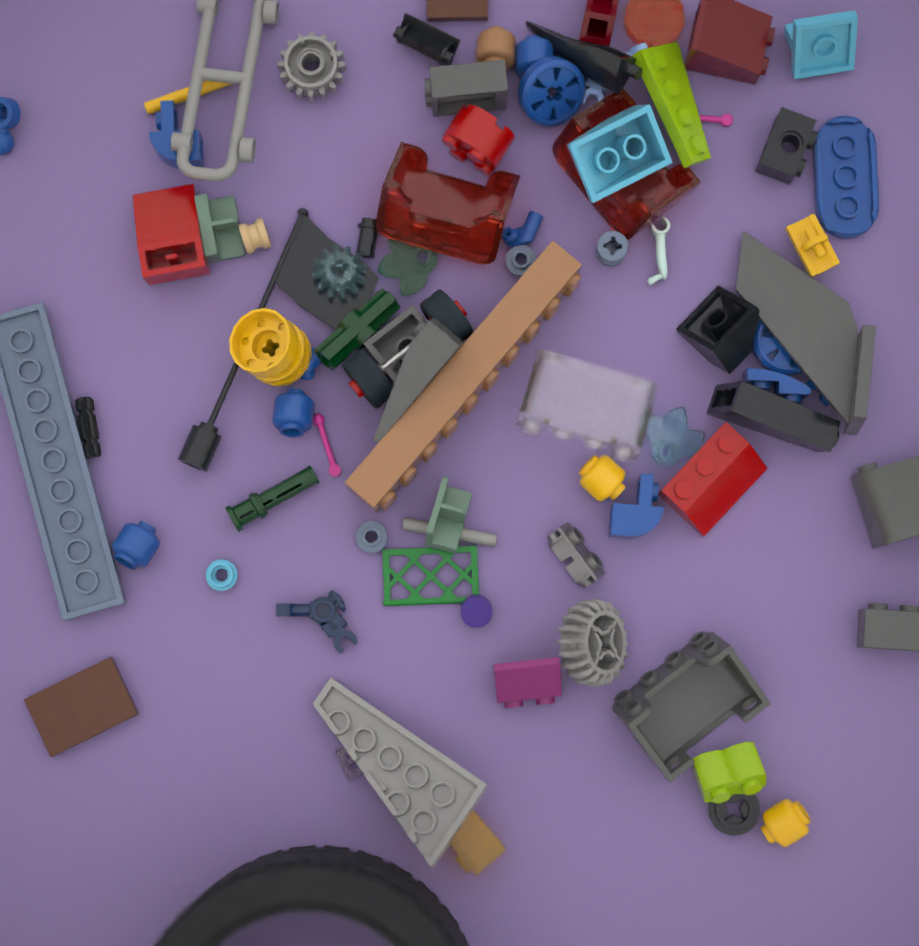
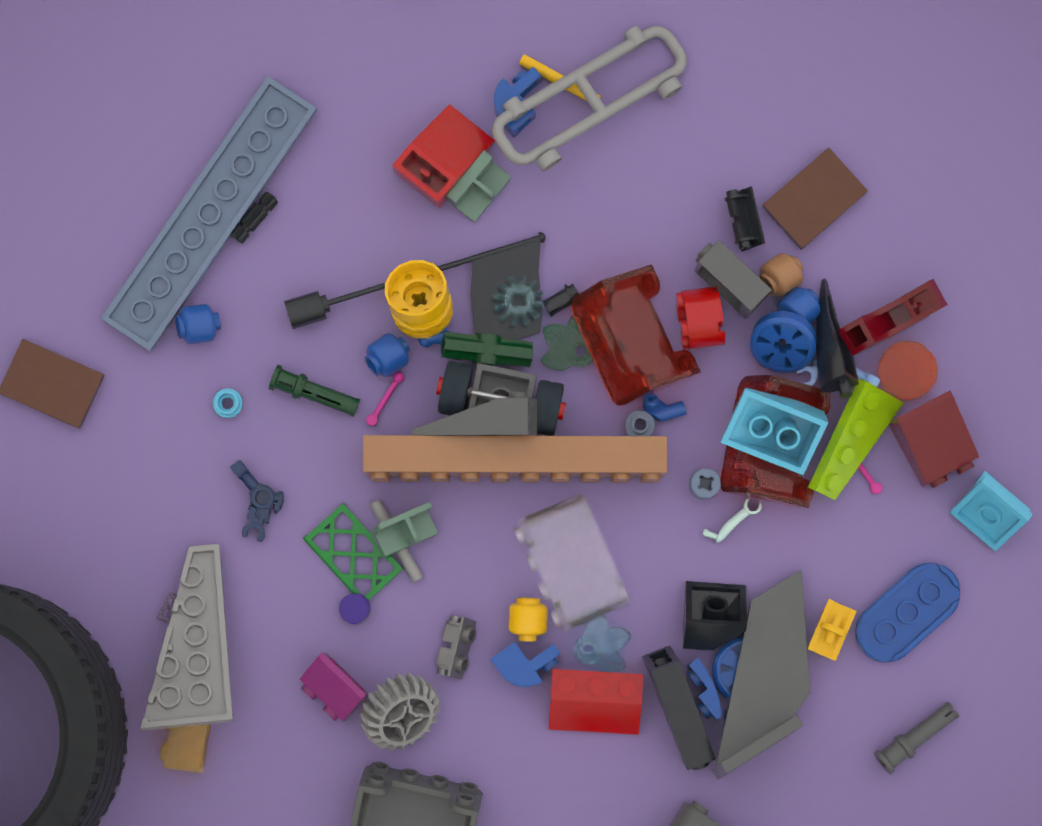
camera: 50 degrees right, 0 degrees up
(255, 235) = (493, 217): tan wheel -> none
(307, 50) = (658, 136): light grey gear -> none
(376, 546) = (349, 496): sand blue plate -> none
(791, 128) = (908, 540): black brick -> none

